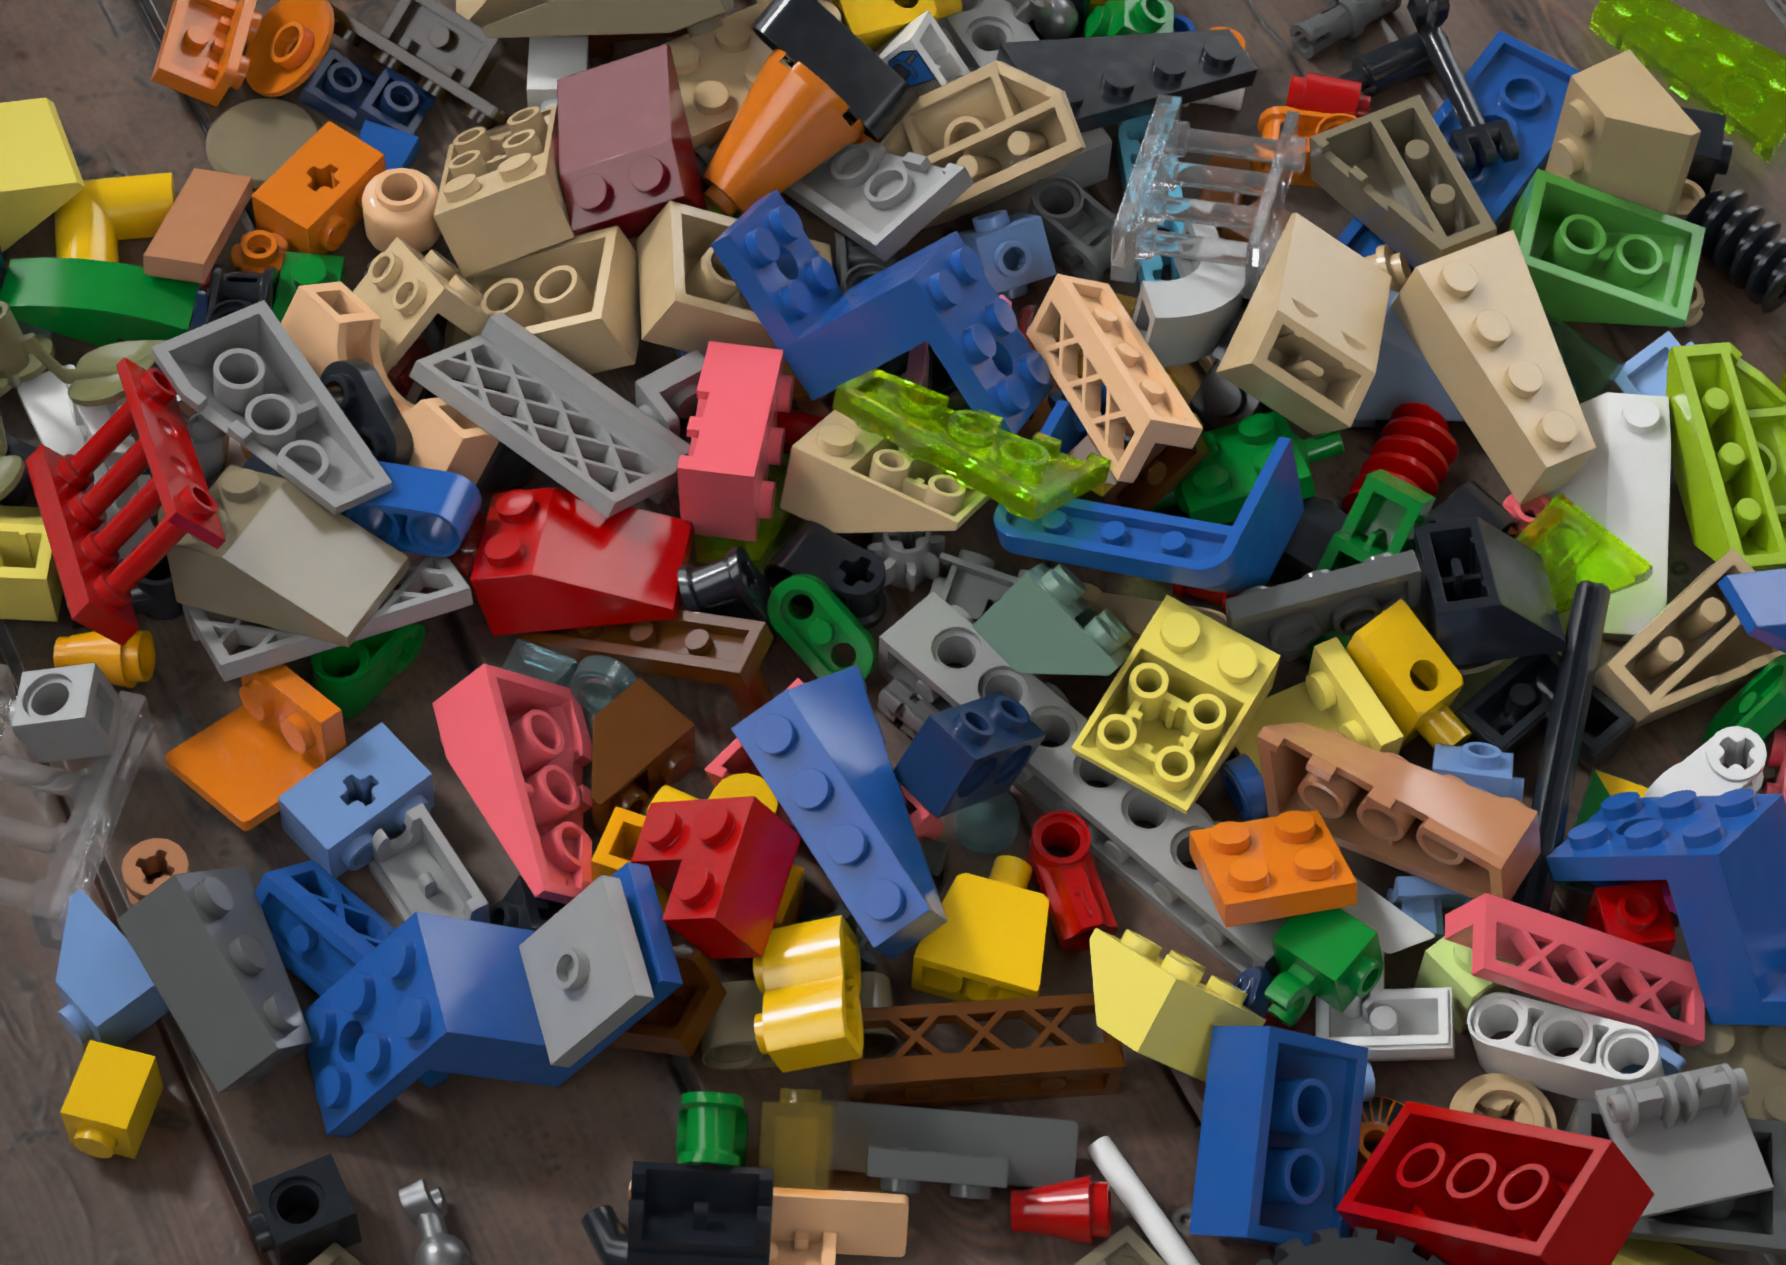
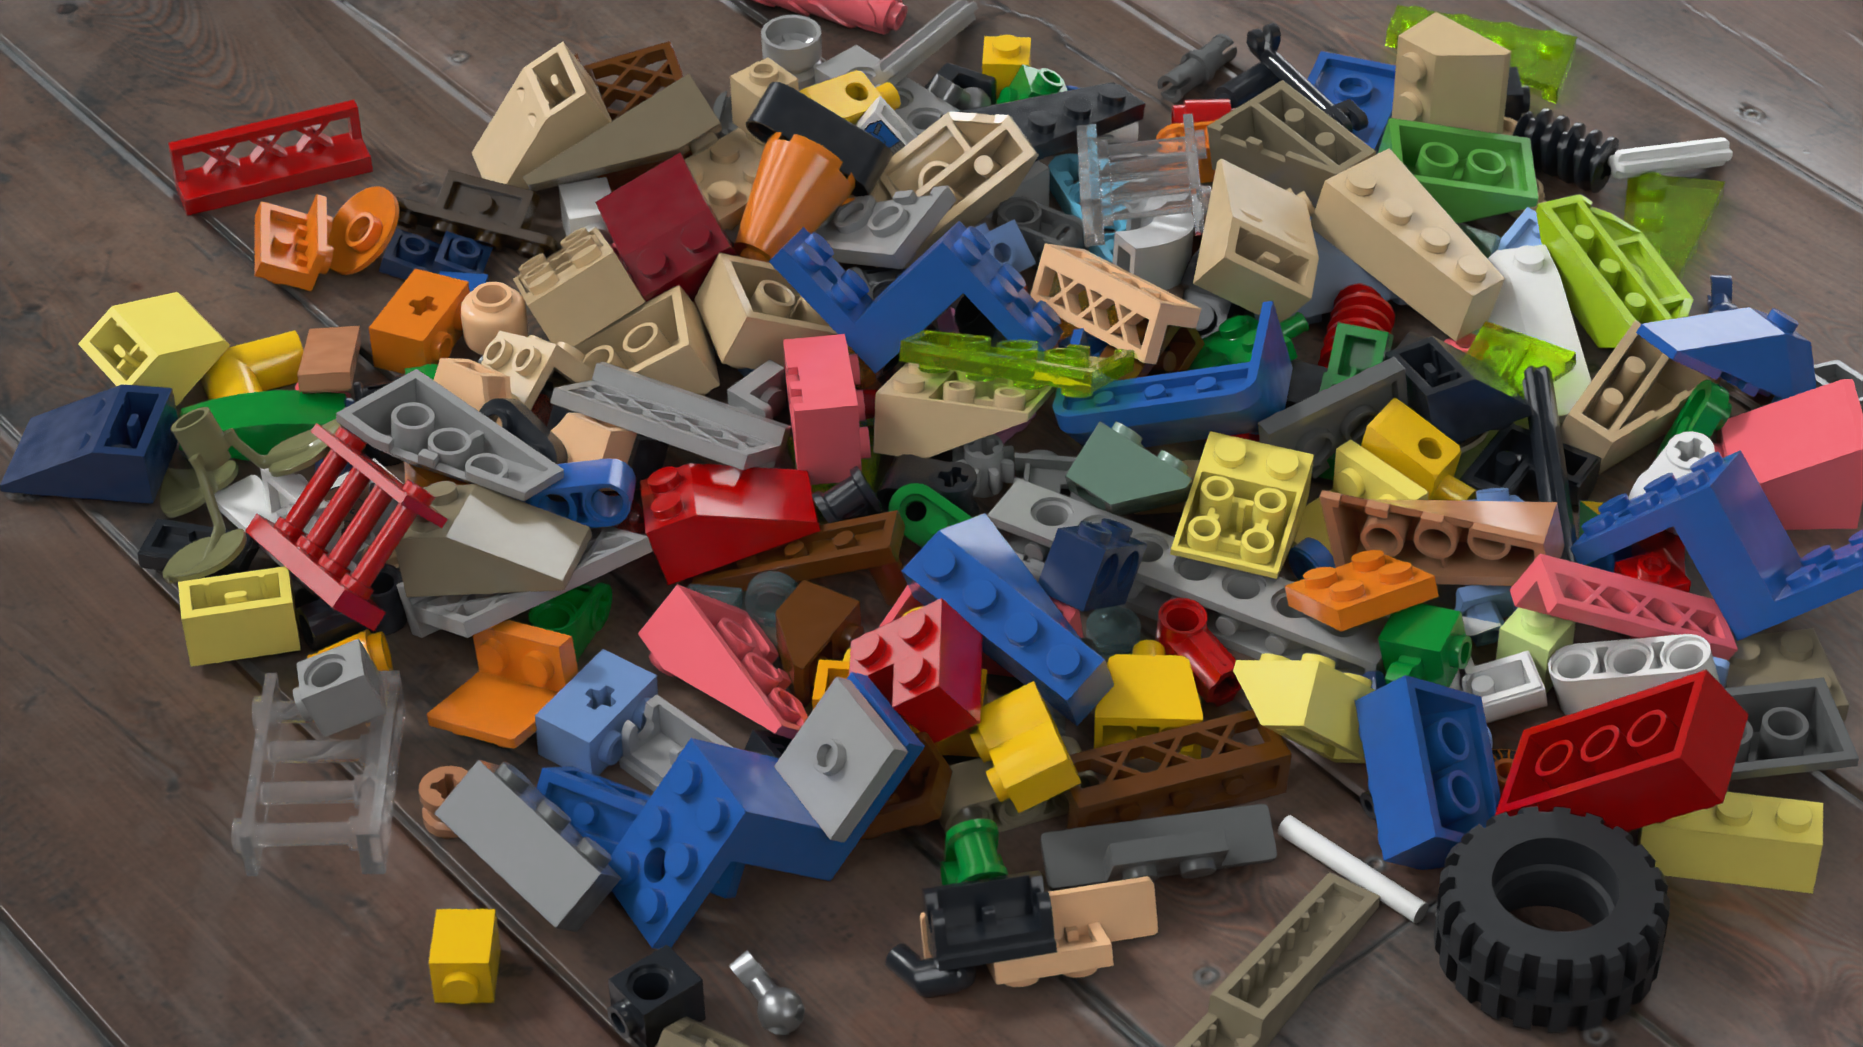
camera: 10 degrees left, 15 degrees down
(102, 979) = (431, 871): medium blue slope -> none
(245, 254) = (382, 369): orange plate -> none
(258, 137) = (352, 302): dark tan piece -> none
(799, 1139) = (1050, 847): clear yellow brick -> none
(1064, 1210) = (1277, 869): red cone -> none
(1687, 1137) = (1766, 690): light grey hinge -> none

